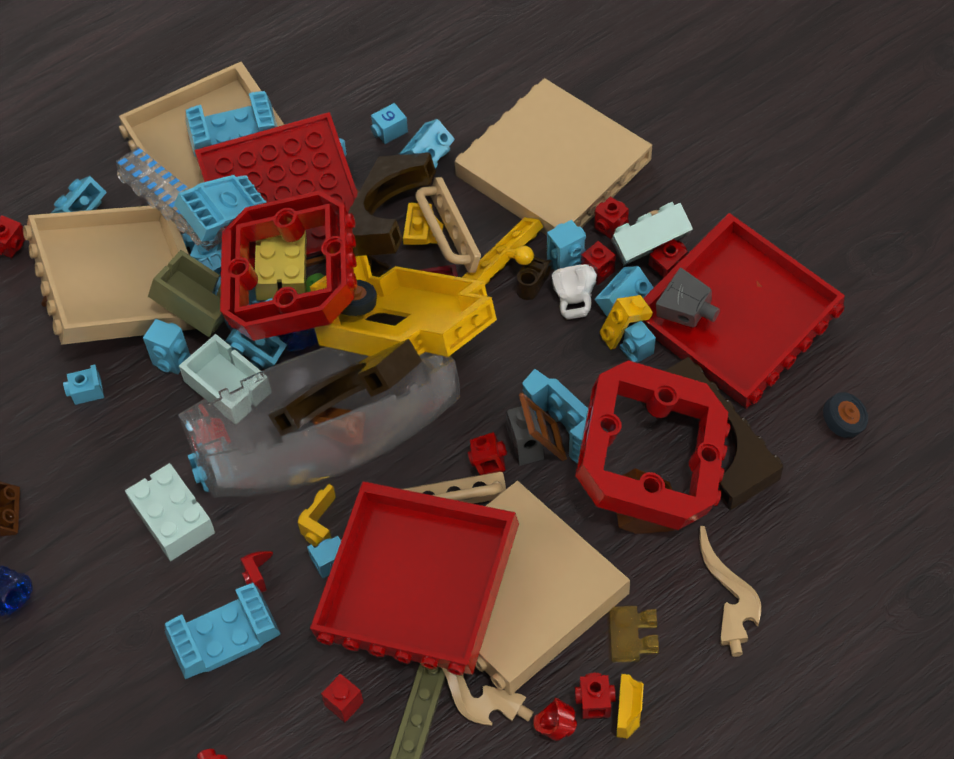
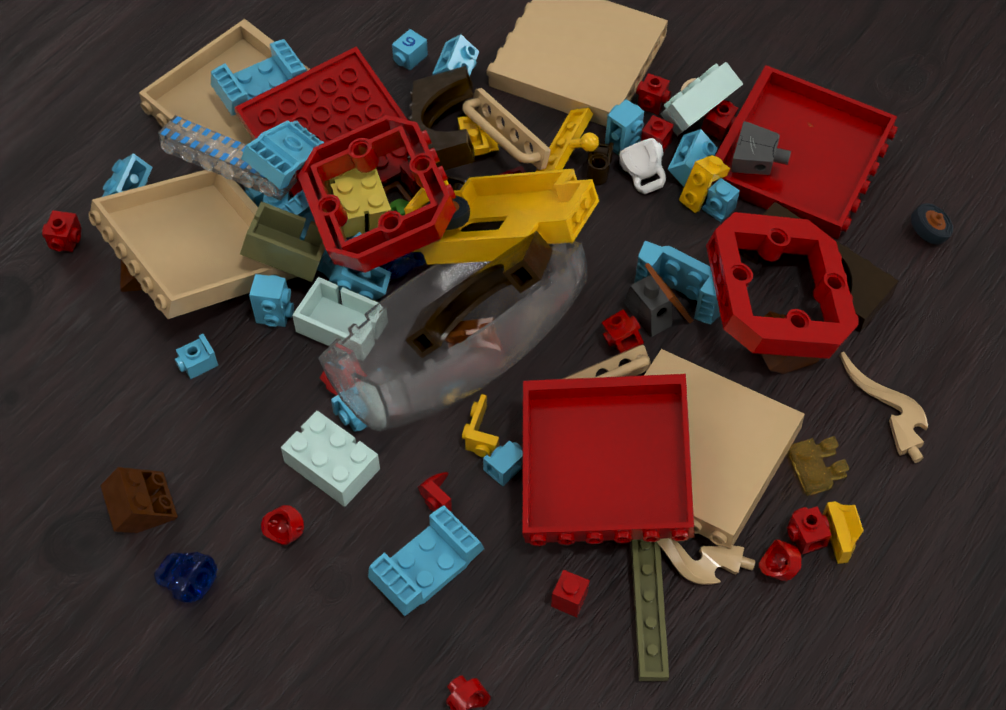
camera: 20 degrees left, 0 degrees up
(107, 566) = (285, 525): none -> red piece

